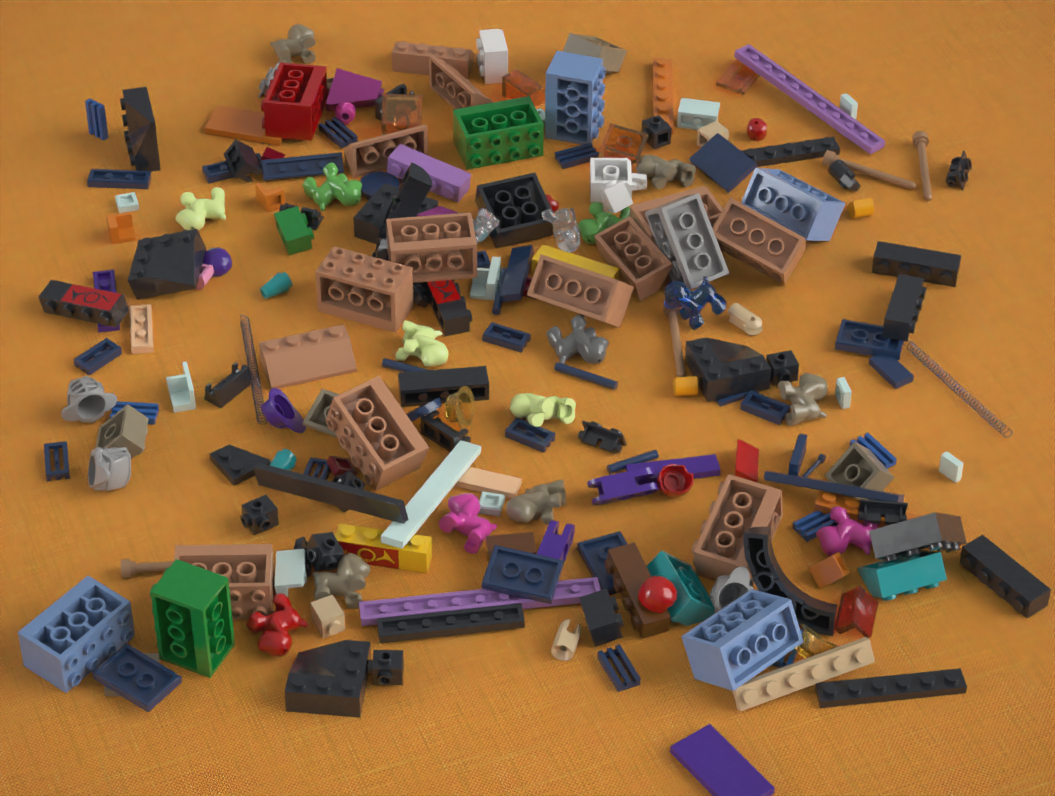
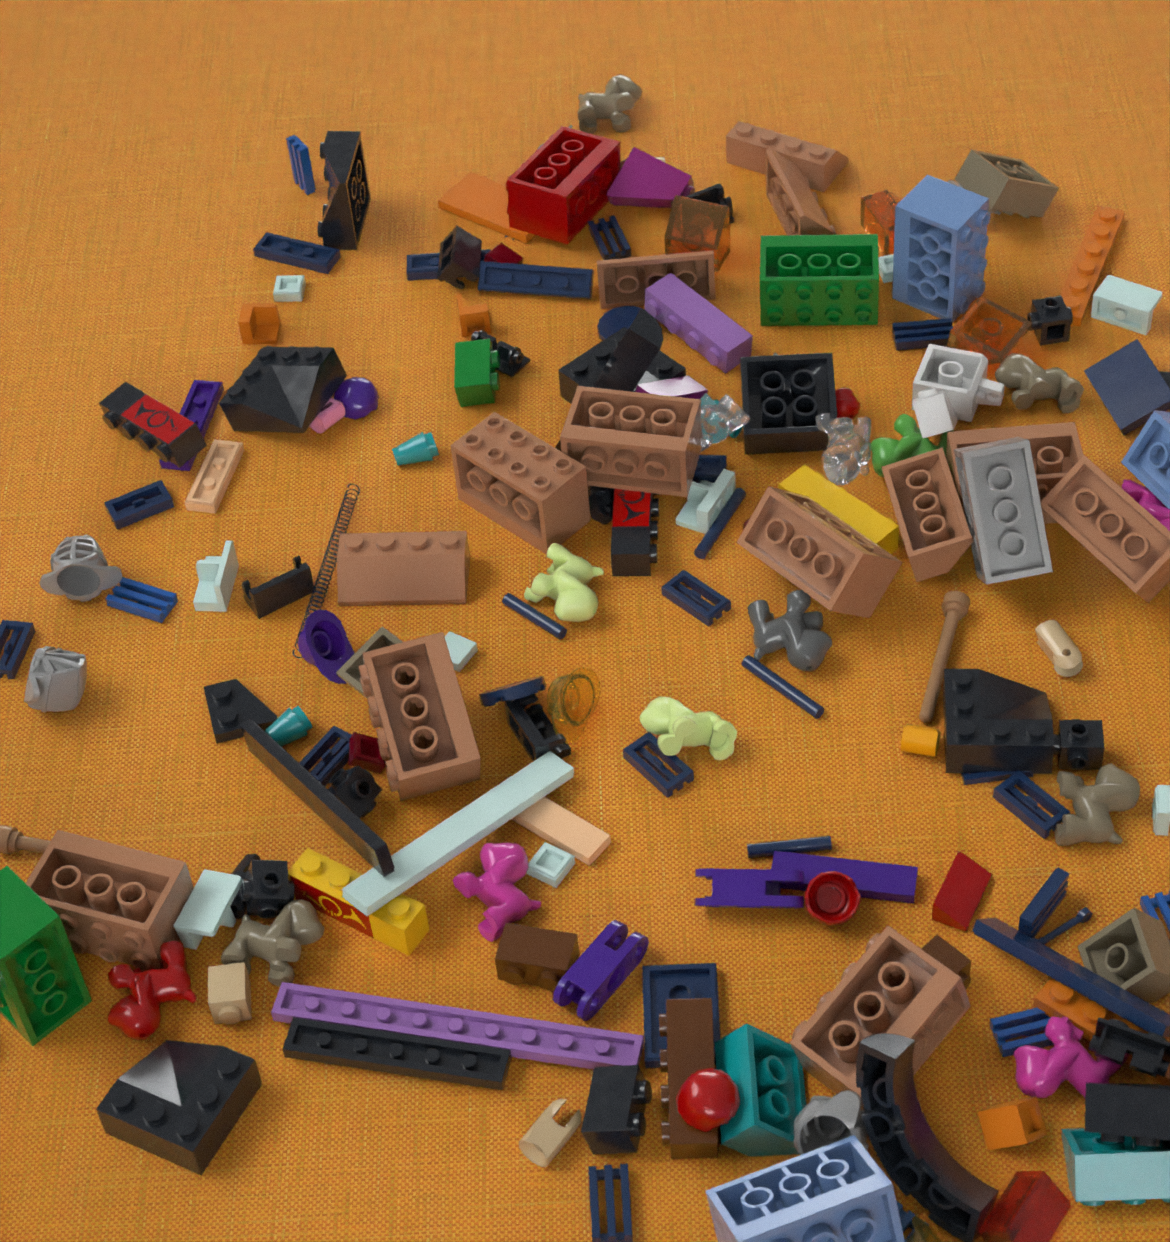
camera: 25 degrees right, 5 degrees up
(124, 429) = (107, 631): dark tan slope -> none
(198, 209) = (355, 328): yellowish green animal -> none
(259, 515) = (215, 802): black brick -> none
(335, 187) = (562, 319): bright green animal -> none
(345, 112) = (629, 212): dark pink piece -> none
(387, 667) = (266, 1106): black brick -> none
(423, 386) = (554, 652): black brick -> none
(492, 55) = (862, 163): white hinge -> none
(516, 273) = (738, 514): dark blue tile -> none
(522, 574) = (529, 1003): dark blue tile -> none
(537, 502) = (613, 886): dark tan animal -> none
(611, 439) = (769, 803): black hinge -> none
(693, 302) = (983, 605): clear blue animal -> none
(707, 132) = (1127, 333): tan brick -> none

